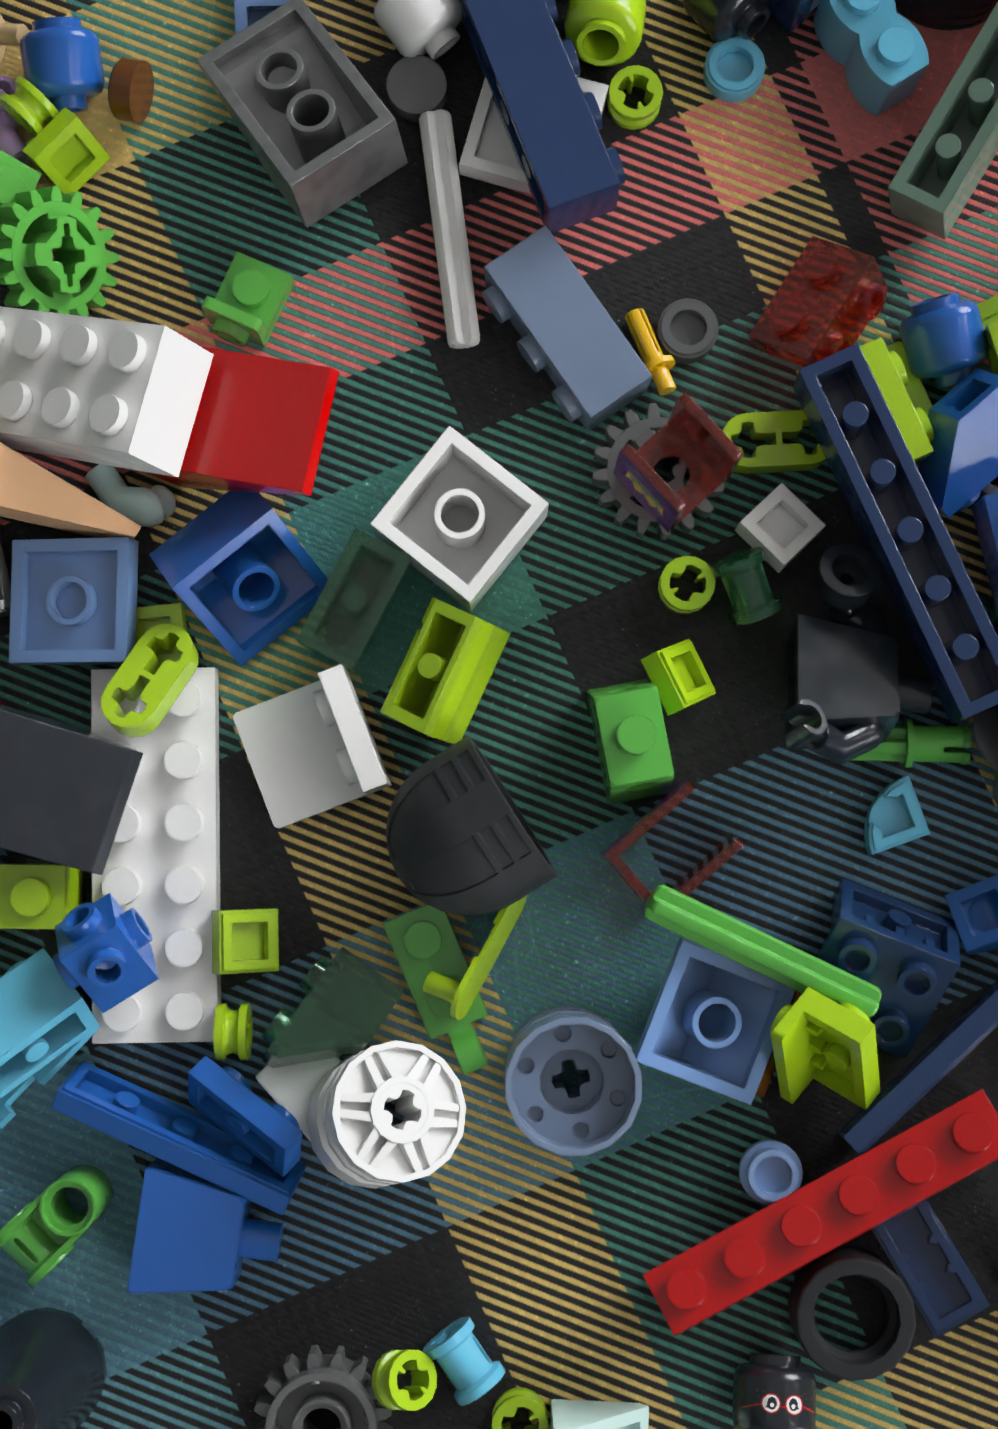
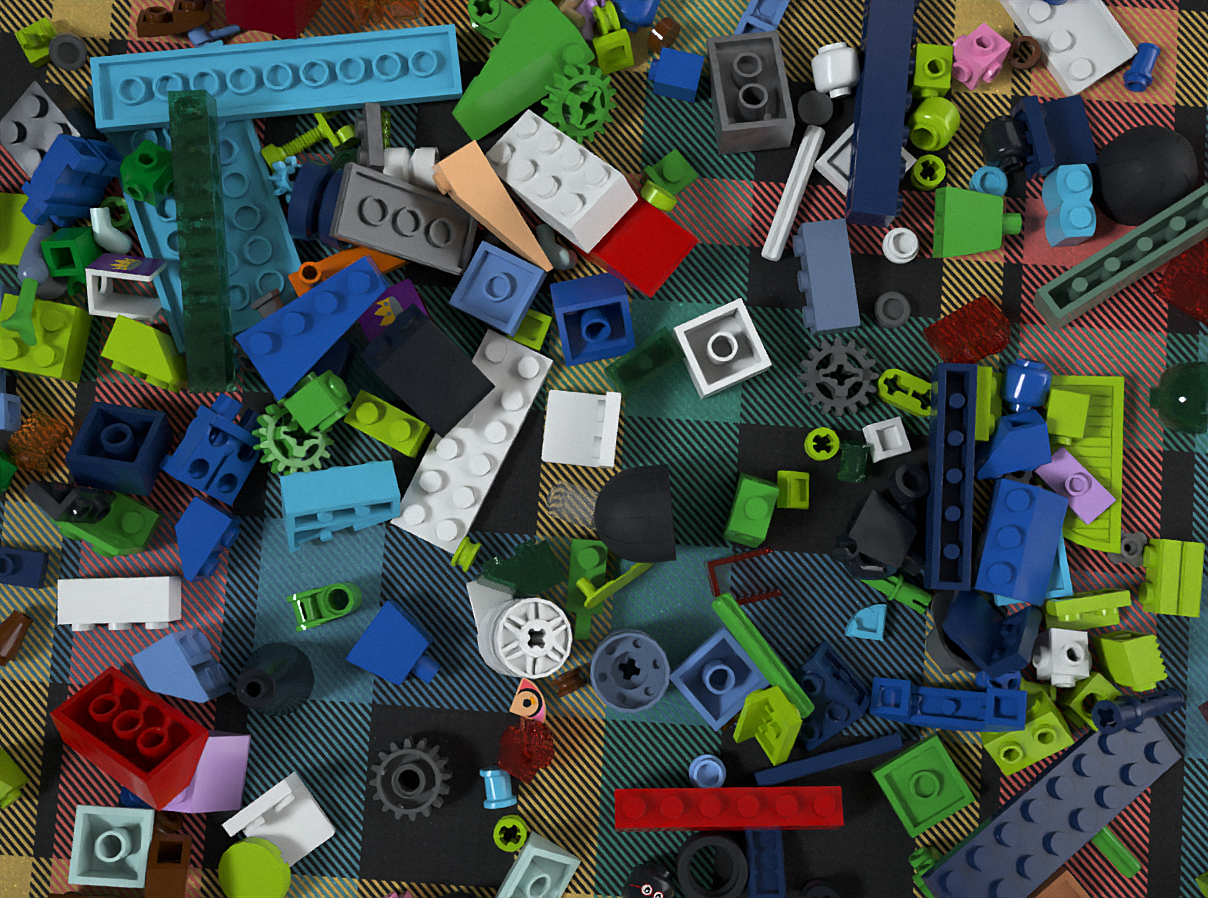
camera: 30 degrees right, 0 degrees up
(105, 952) = (424, 478): blue brick -> none
(145, 677) = (512, 343): lime beam -> none
(172, 1135) = (411, 594): blue tile -> none
(180, 138) = (676, 74): none -> blue brick
(230, 1103) = (450, 600): blue plate -> none
(244, 336) = (658, 196): none -> lime tile
(245, 941) = (496, 510): lime tile -> none
(355, 872) = (572, 504): none -> clear brick
(410, 1397) = (473, 781): lime bush -> none
(445, 672) = (672, 424): lime brick -> none
(446, 1206) = (529, 701): none -> tile
(476, 1283) = (525, 749): none -> clear red brick
(490, 1144) = (568, 681): none -> reddish brown bush
(650, 351) = (866, 311): yellow piece -> none
(651, 226) = (900, 245): none -> white plate
(695, 441) = (866, 374): clear red piece -> none
(736, 137) = (970, 222): none -> bright green torso

